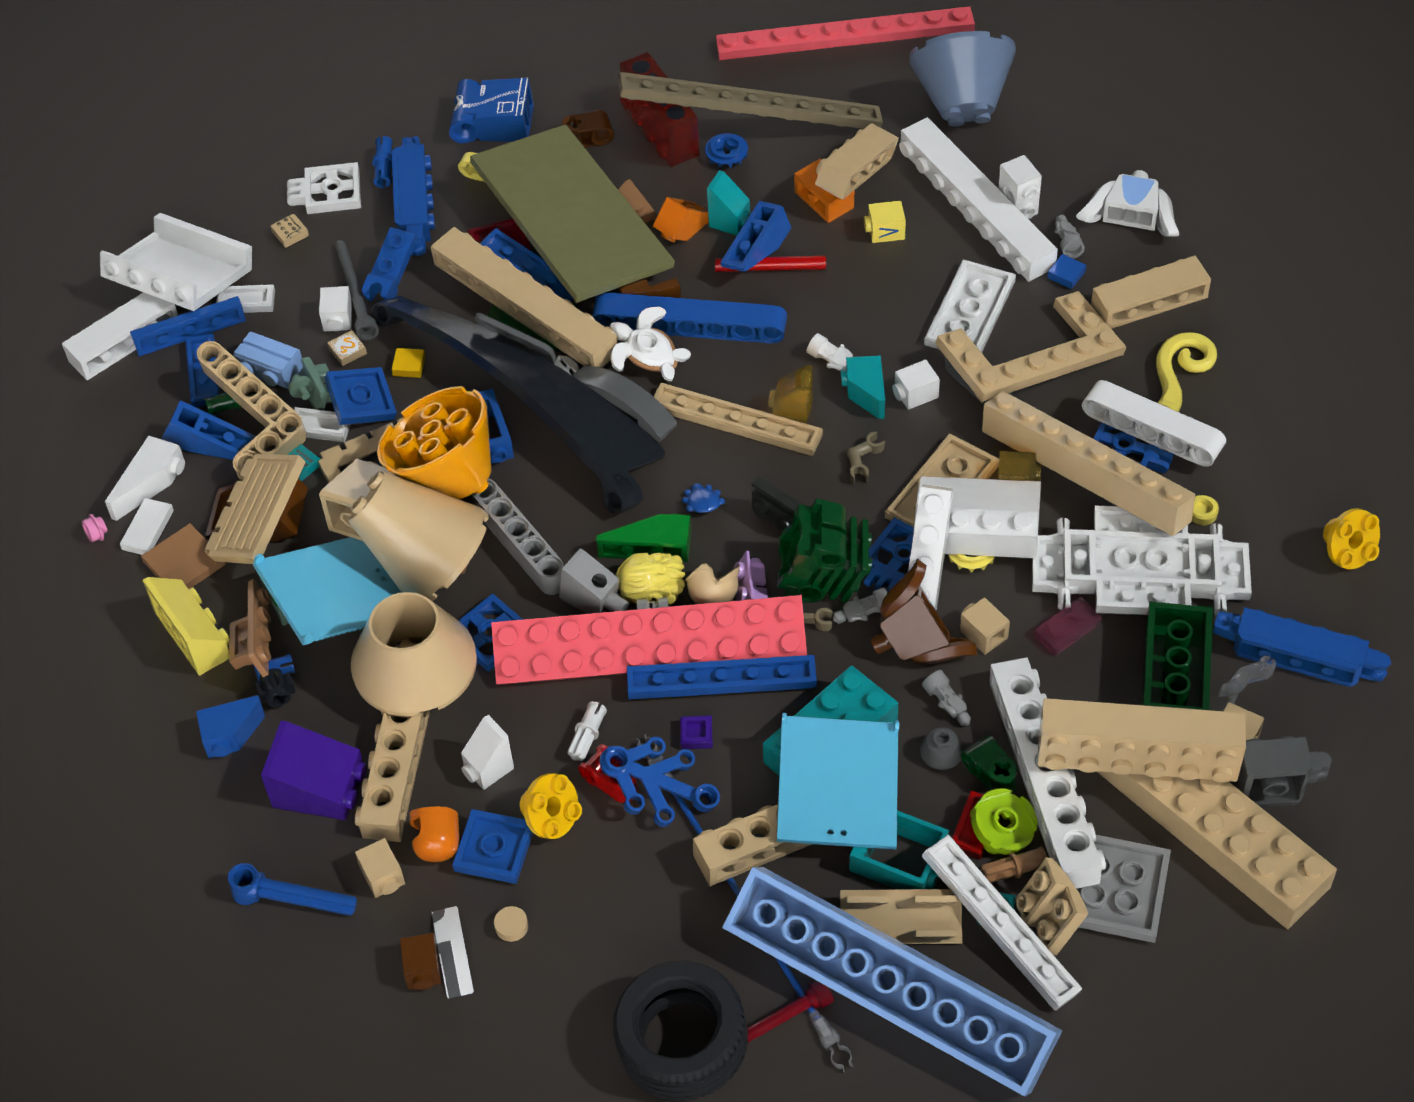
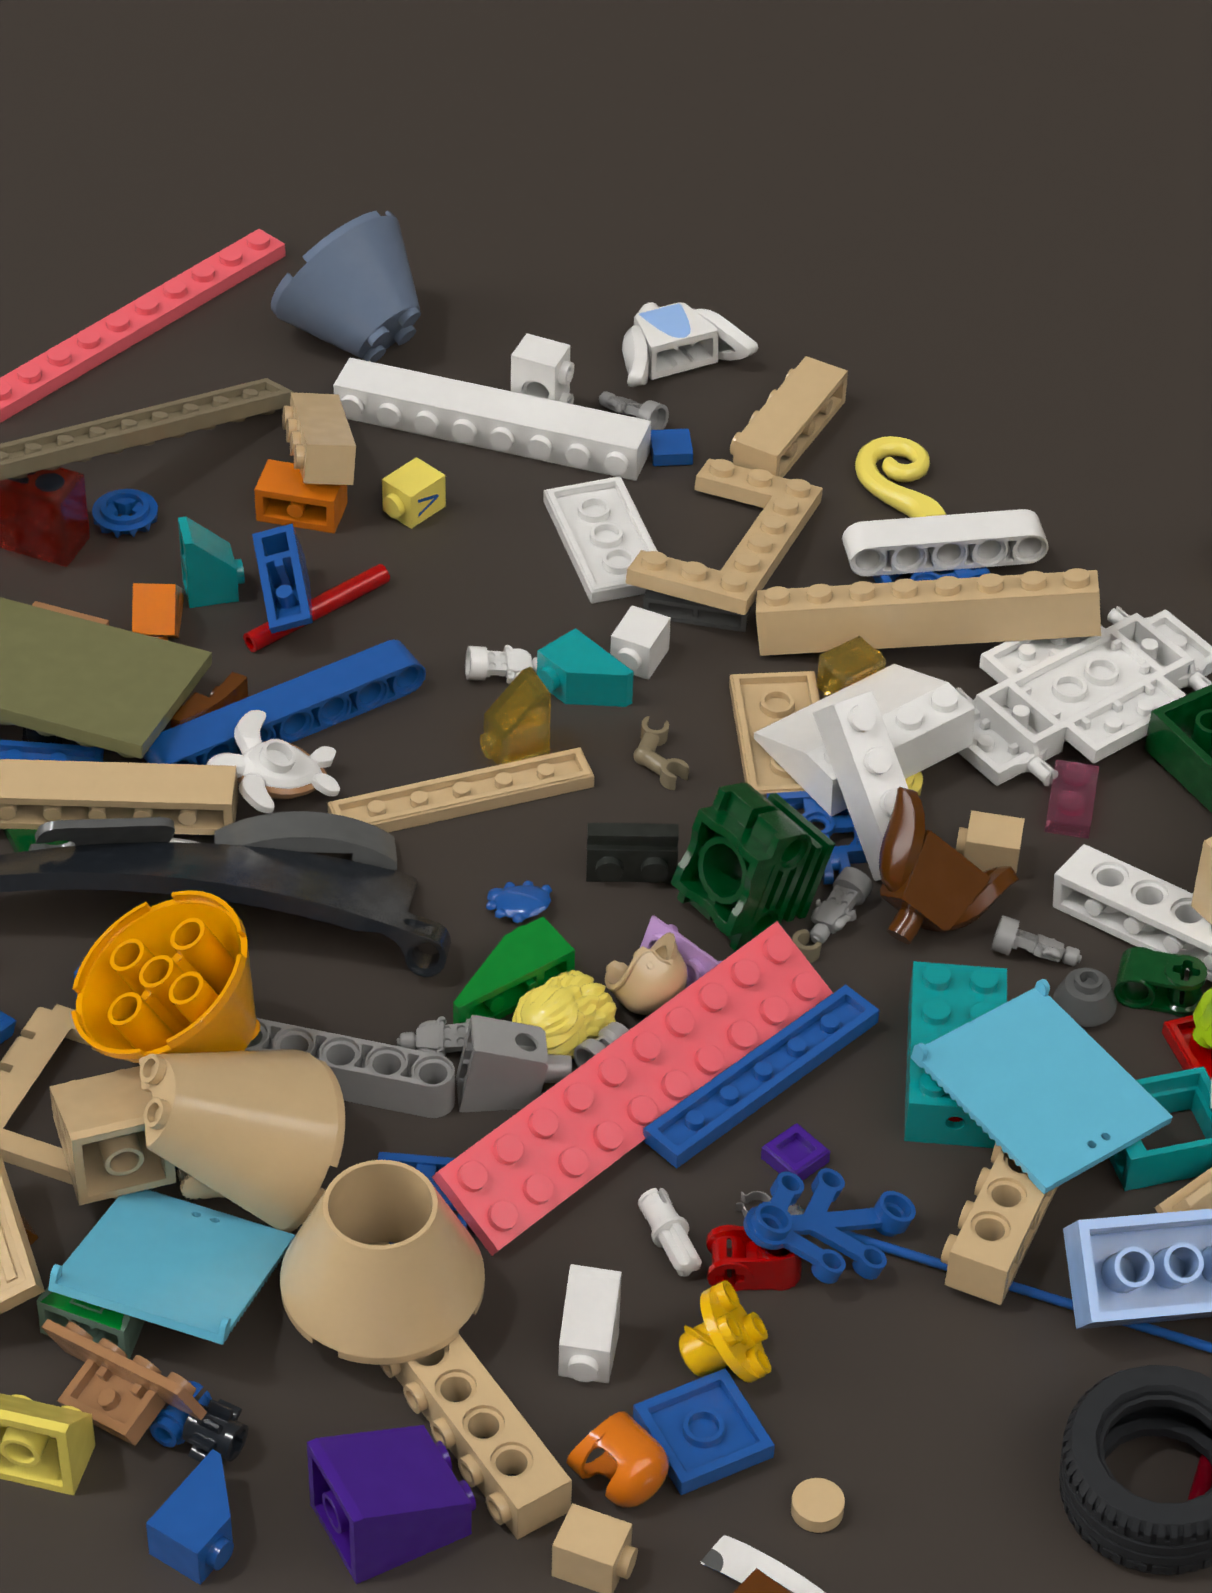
camera: 45 degrees left, 10 degrees down
(585, 544) = (436, 1037): none -> light grey piece

